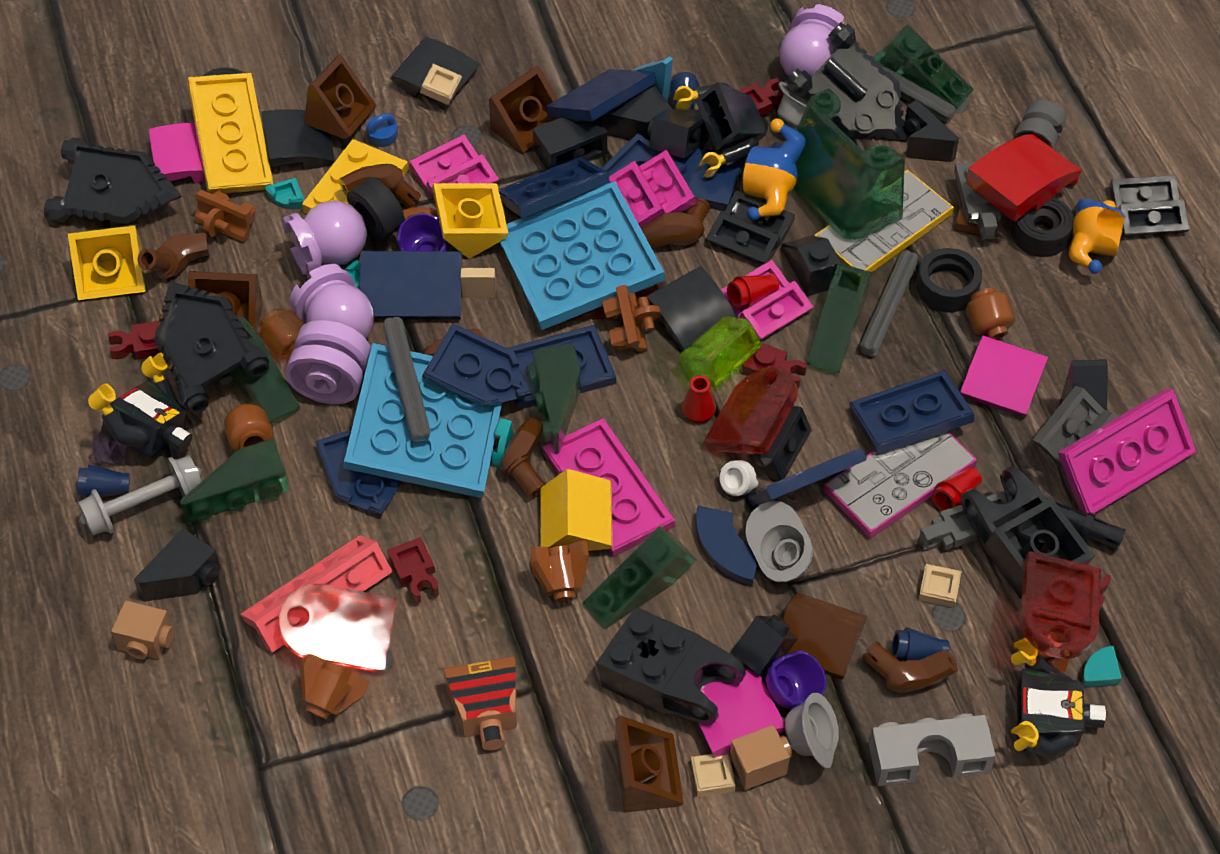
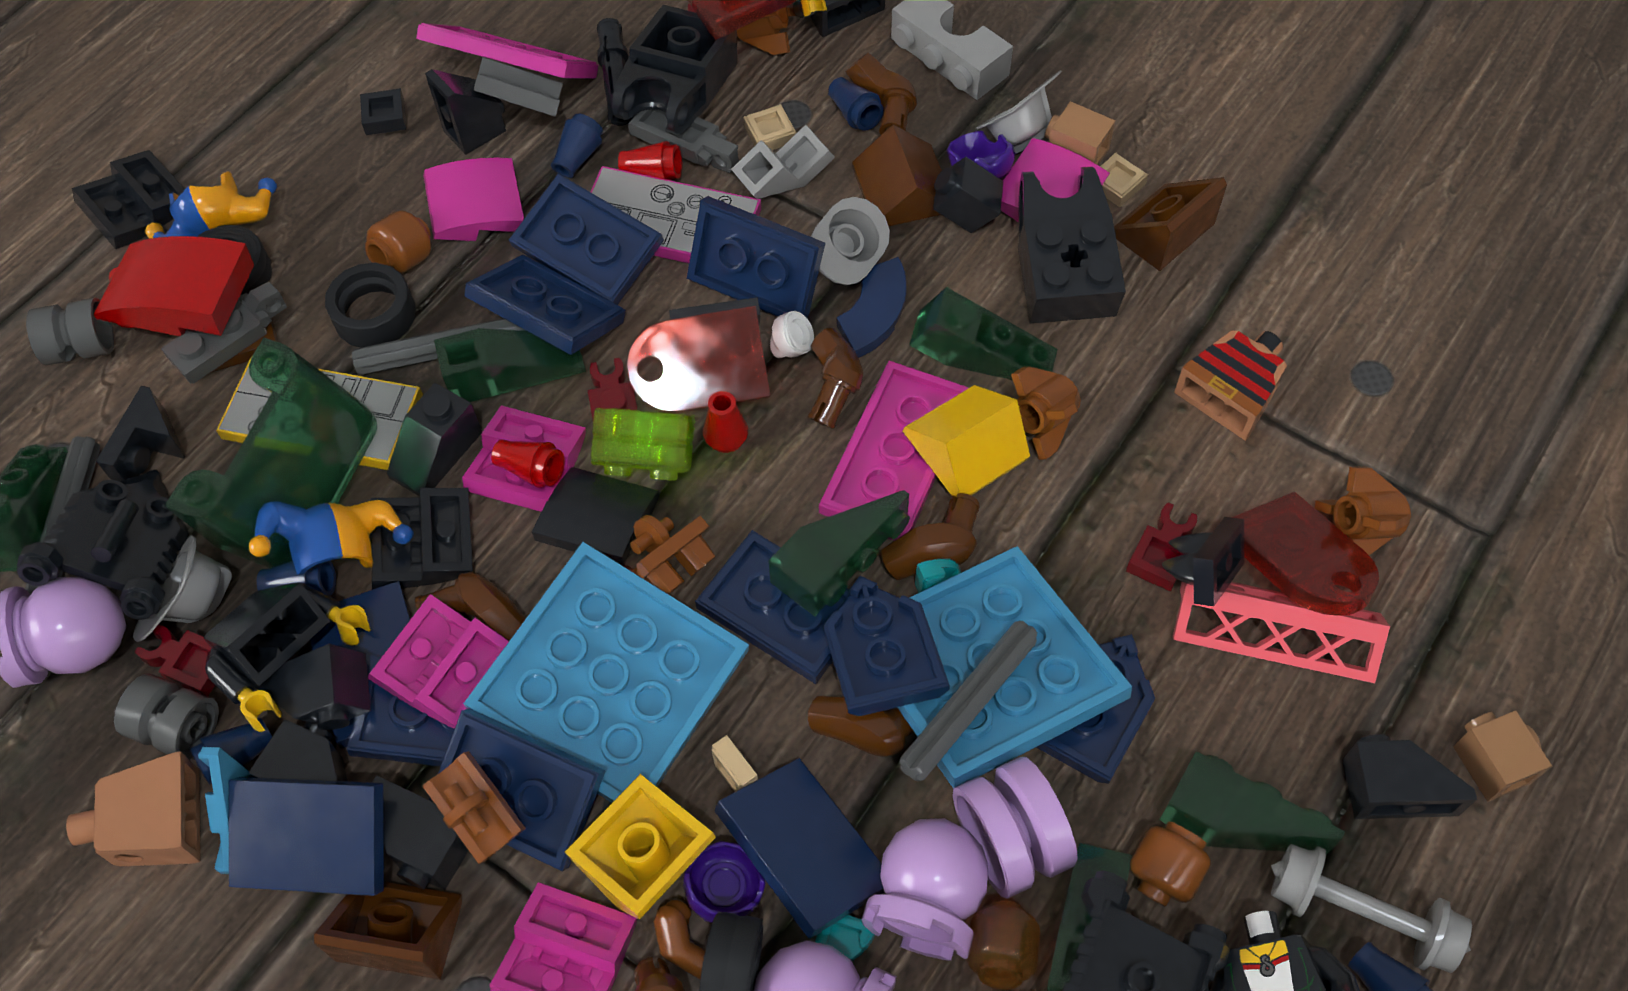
camera: 125 degrees left, 5 degrees up
(375, 569) = (1209, 560): none -> black tile
(549, 150) = (473, 807): none -> dark orange hips
(678, 40) = (144, 814): none -> nougat torso
(684, 482) = (841, 375): none -> reddish brown arm
(729, 68) = (165, 715): none -> dark grey wheel
(870, 360) = (545, 303): none -> dark blue tile
(891, 562) = (789, 168): none -> light grey slope
(1009, 453) = (577, 143): none -> dark blue cone
(1130, 364) = (383, 111): none -> black plate

